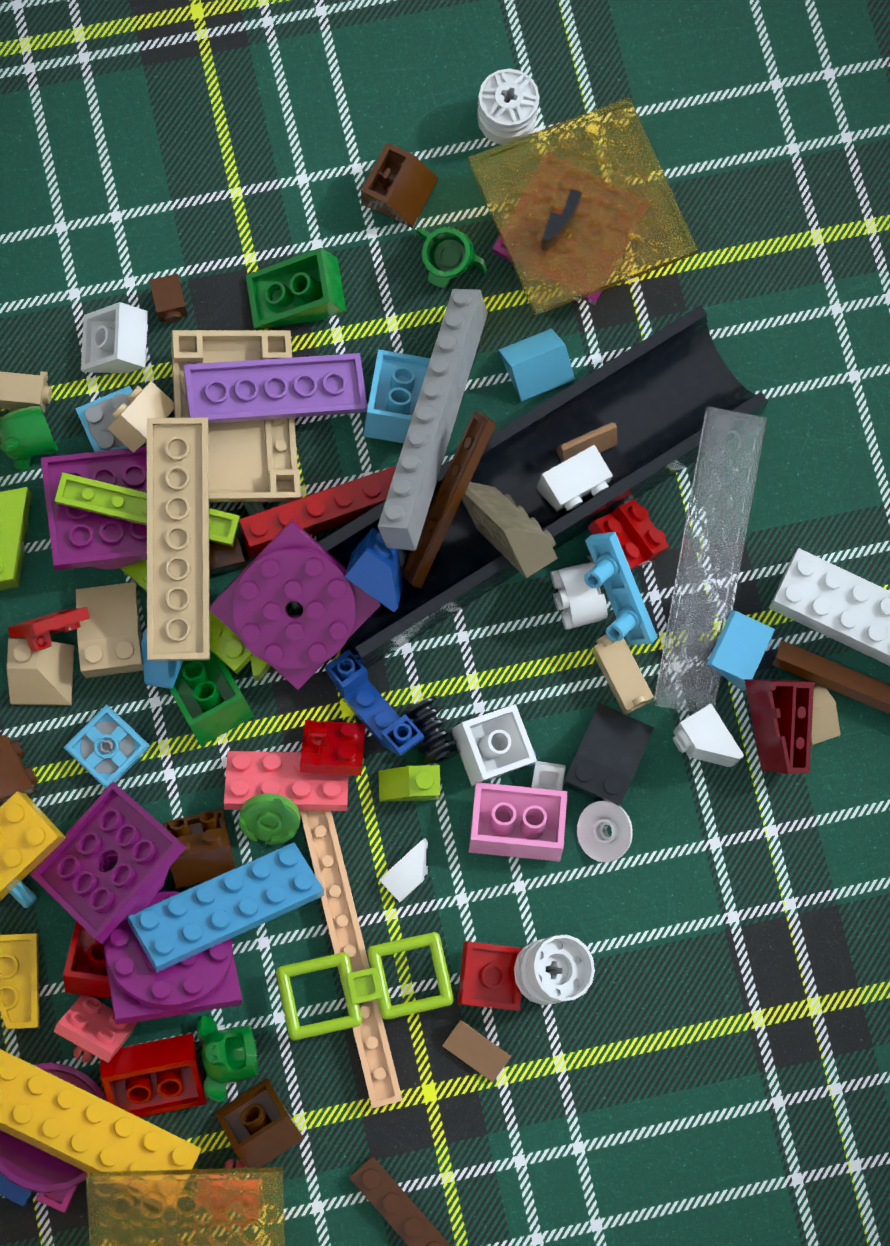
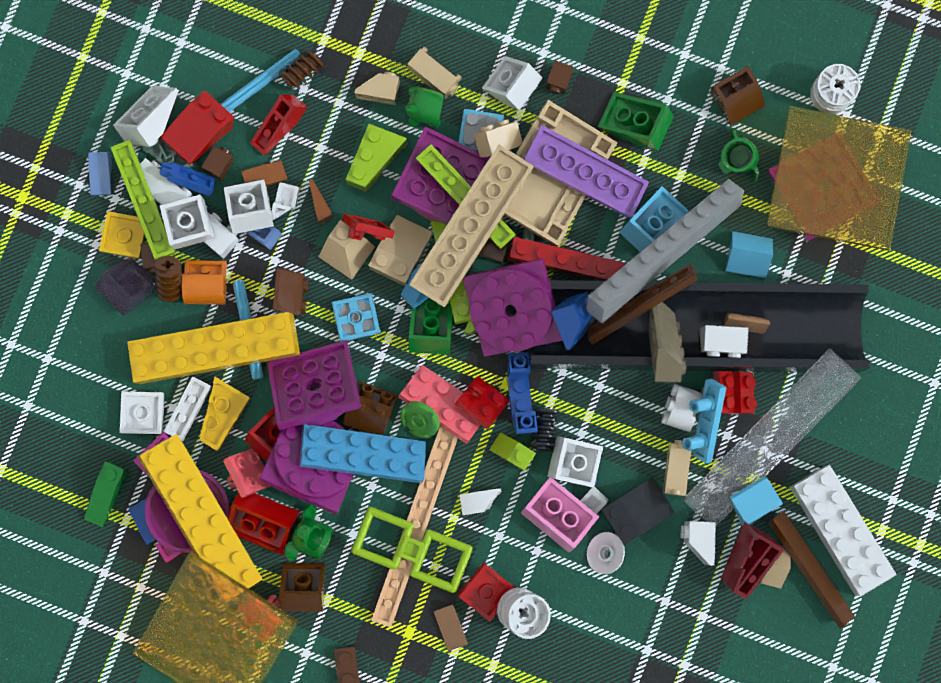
camera: 40 degrees right, 5 degrees up
(558, 224) = (816, 181): black slope -> none

